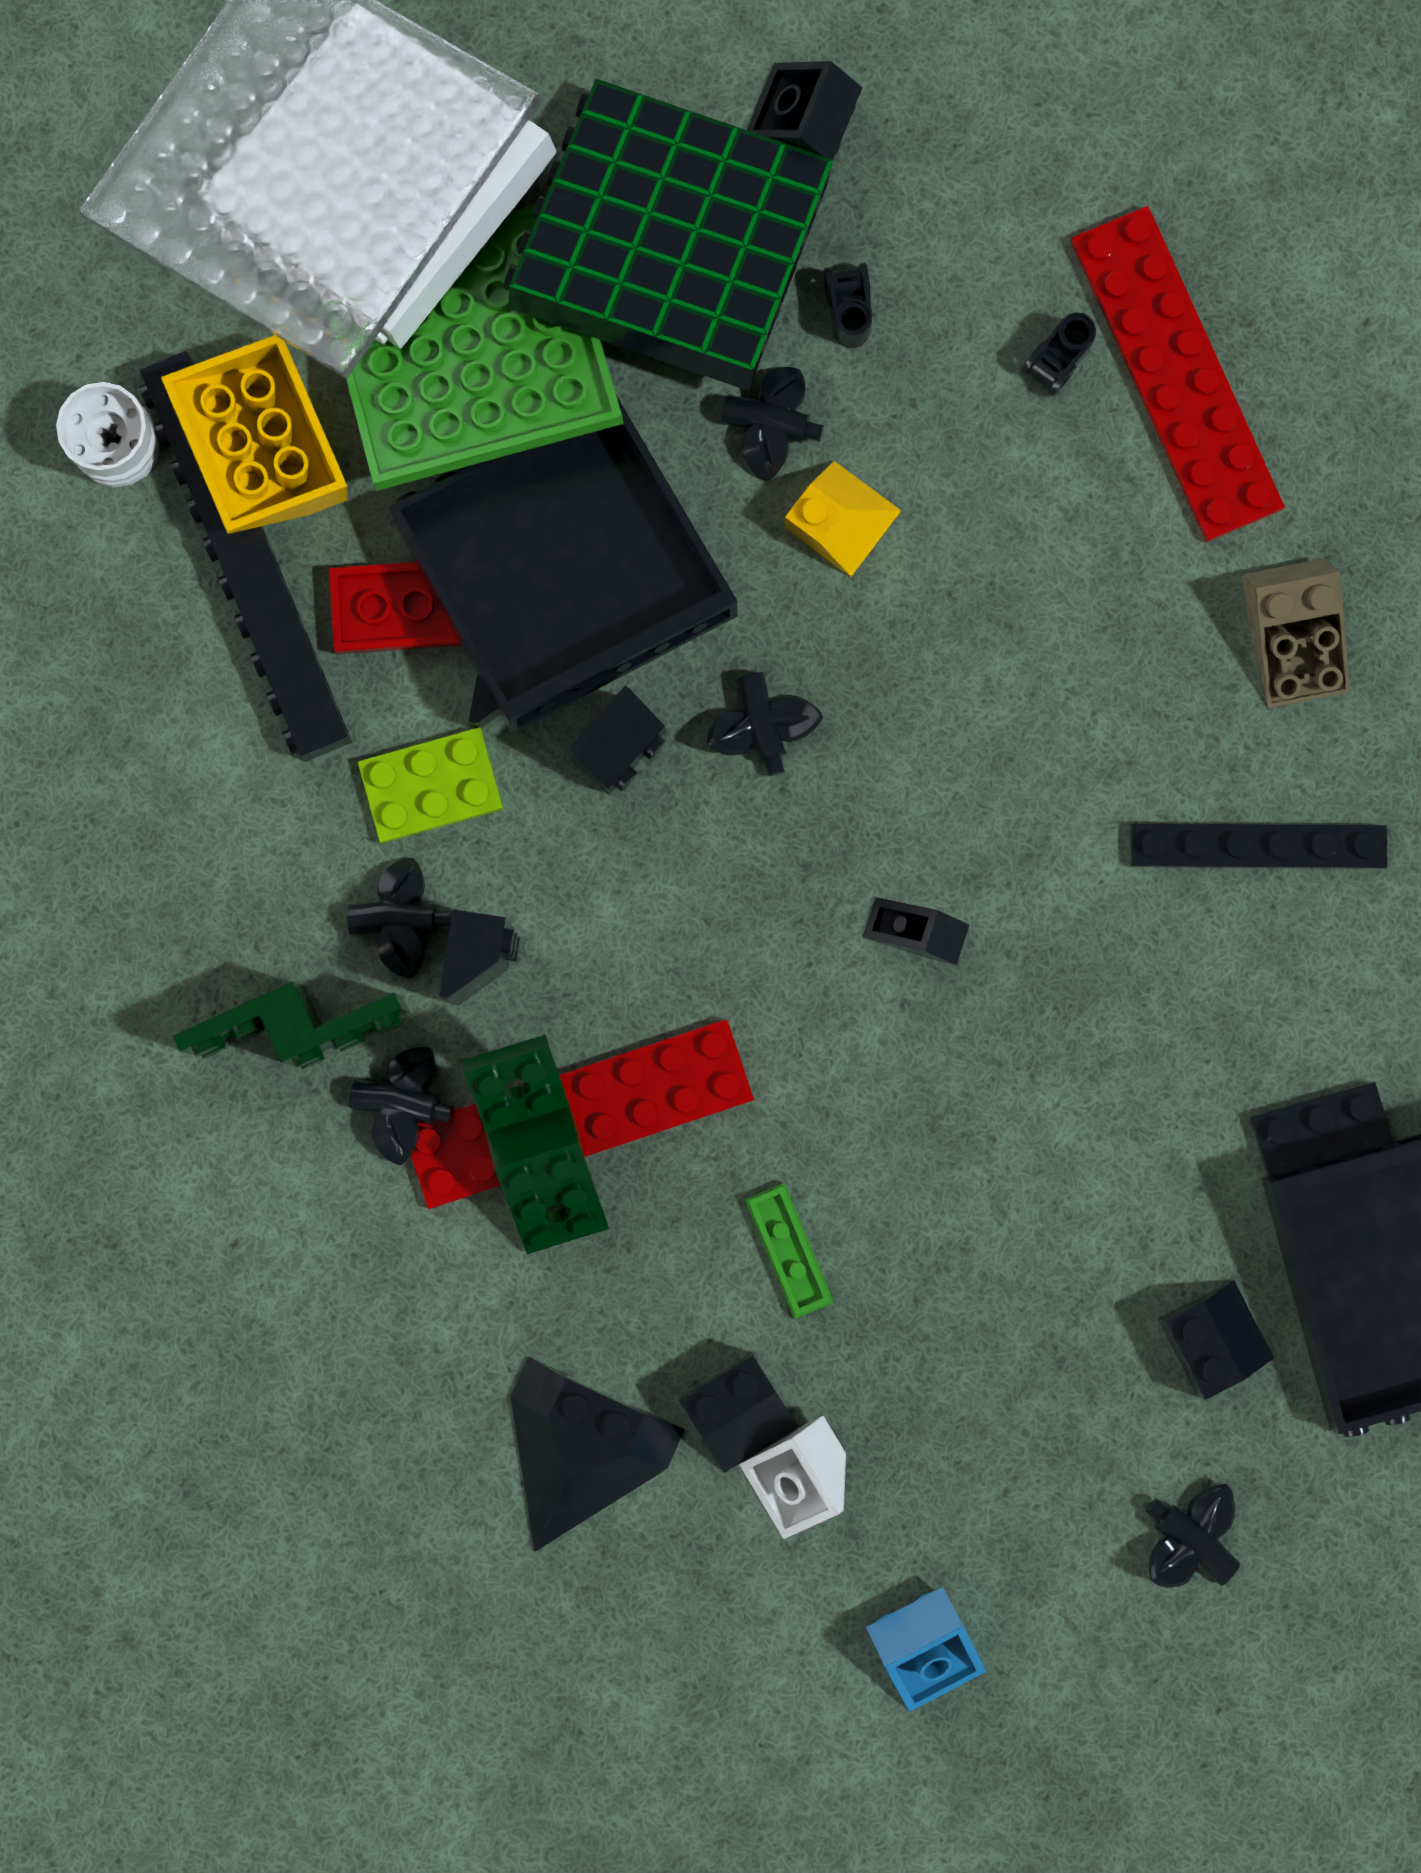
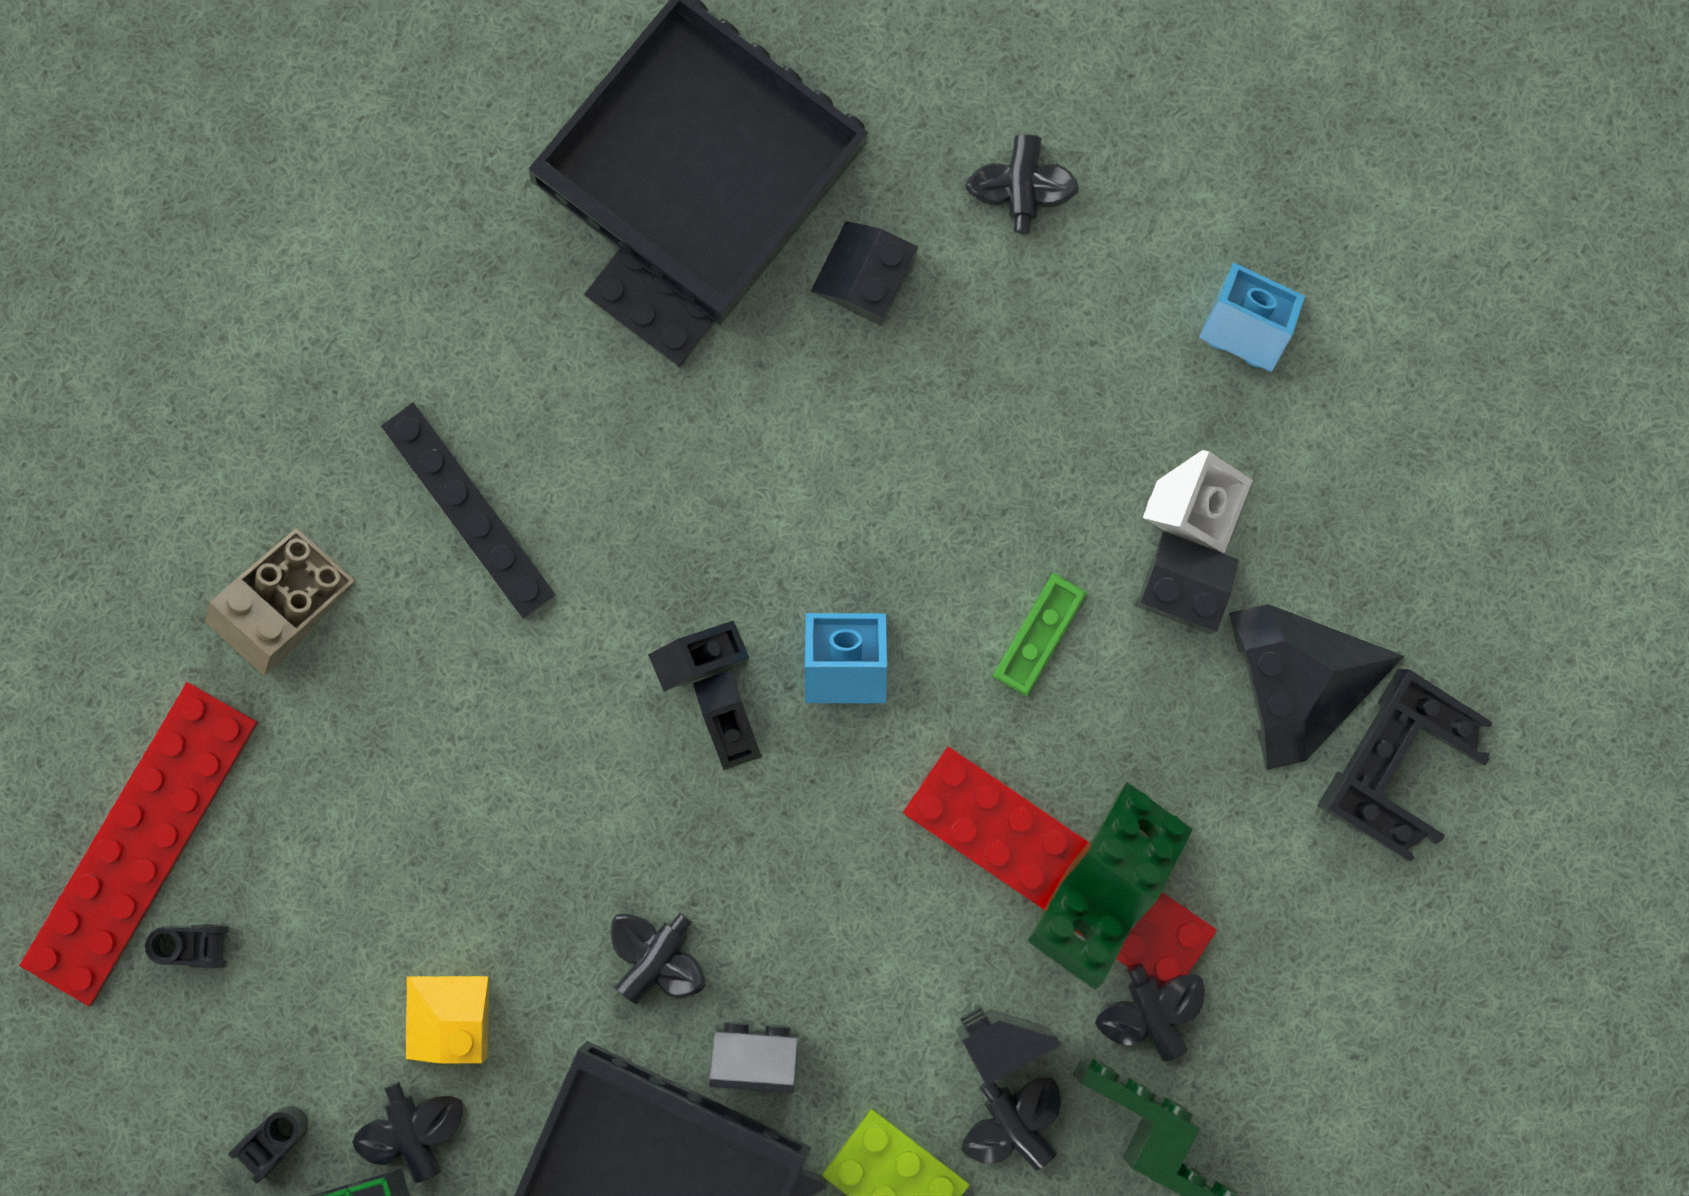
camera: 130 degrees left, 0 degrees up
(490, 1517) = (1357, 792): none -> black wedge
(893, 1069) = (845, 658): none -> dark azure slope
(989, 947) = (698, 655): none -> black slope

